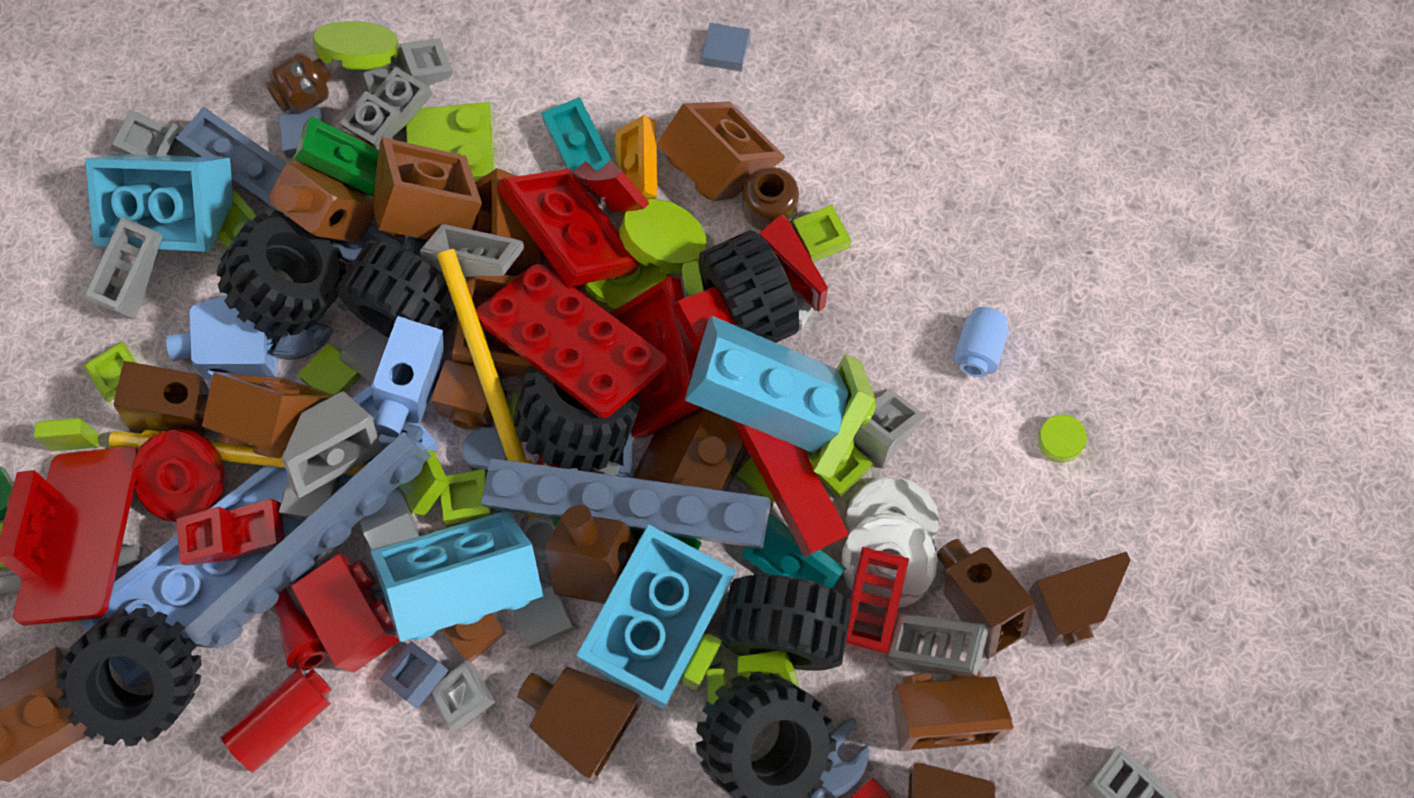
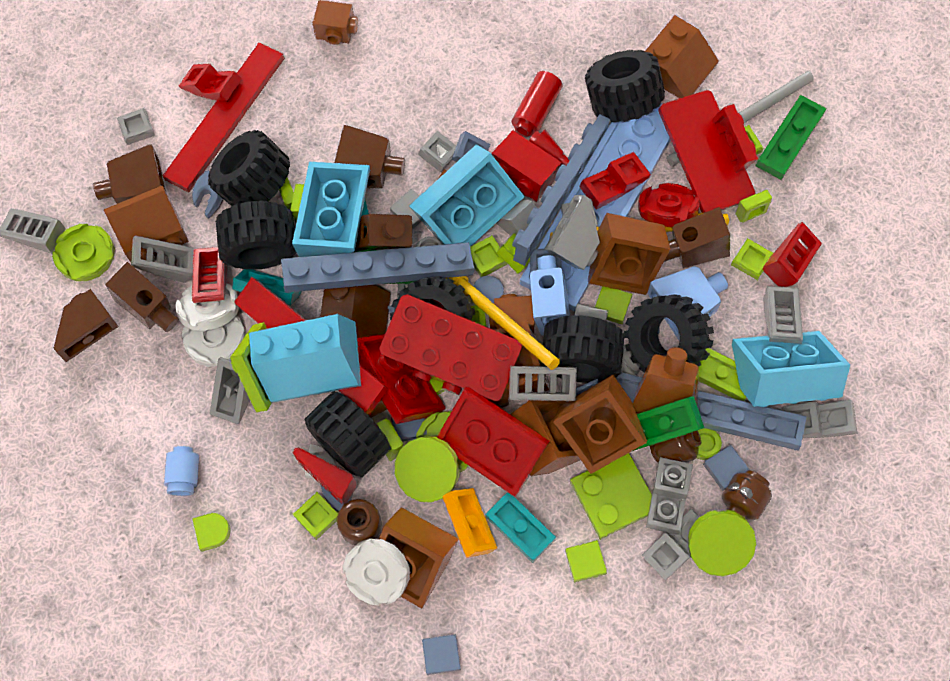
camera: 160 degrees right, 0 degrees up
(64, 347) = (780, 269): none -> red slope
(519, 87) = (585, 561): none -> lime tile
(611, 187) = (473, 479): red slope -> none
(769, 140) = (376, 571): none -> white tile
(960, 264) = (211, 531): none -> lime tile
(1049, 742) = (83, 252): none -> lime tile
(1062, 438) = (114, 427): lime tile -> none

